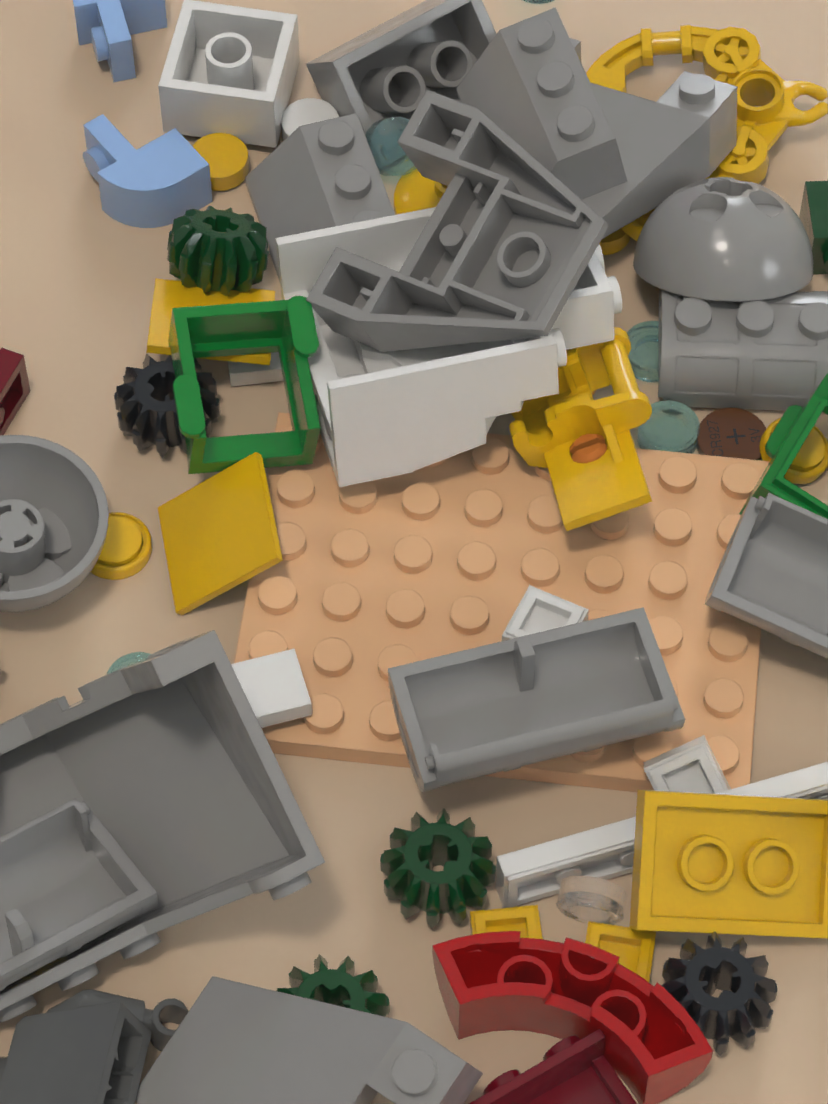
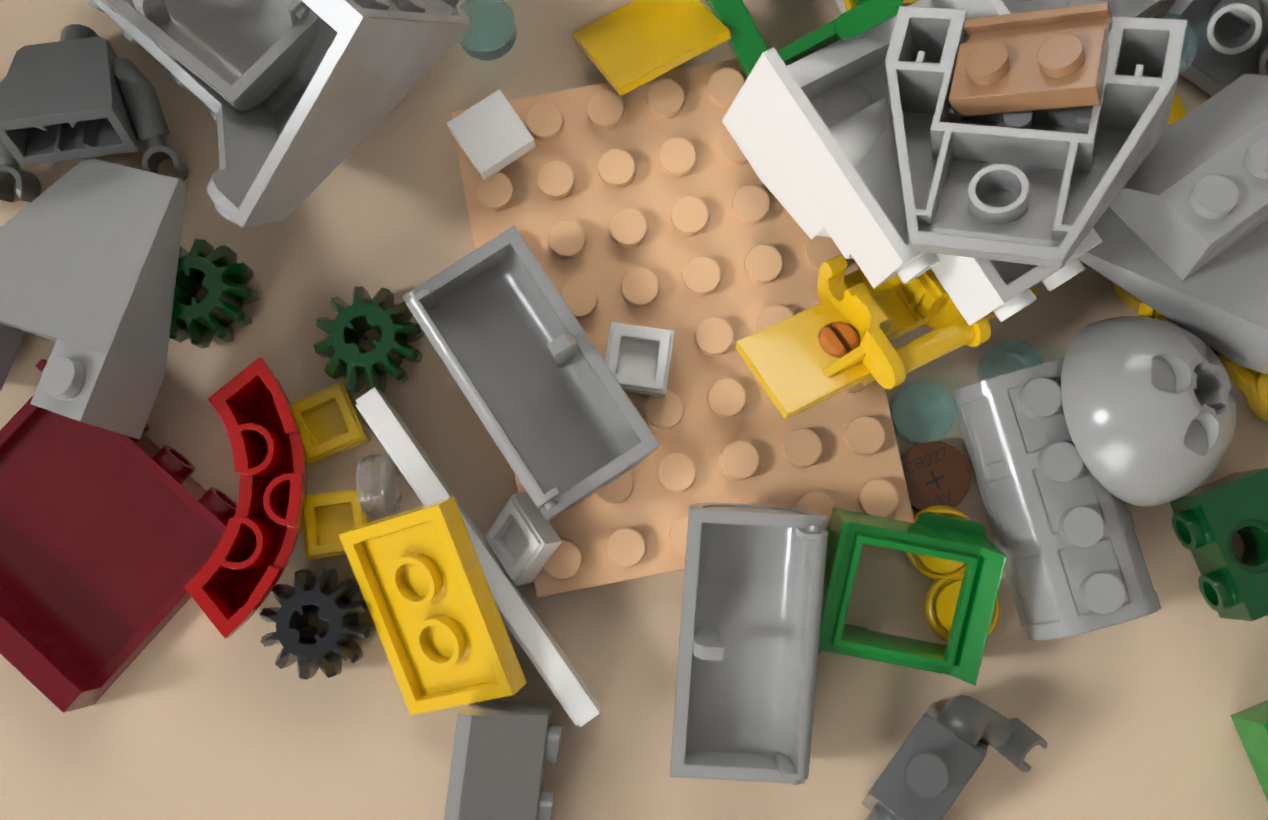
camera: 75 degrees right, 25 degrees up
(411, 208) = (1032, 60): none -> medium nougat plate

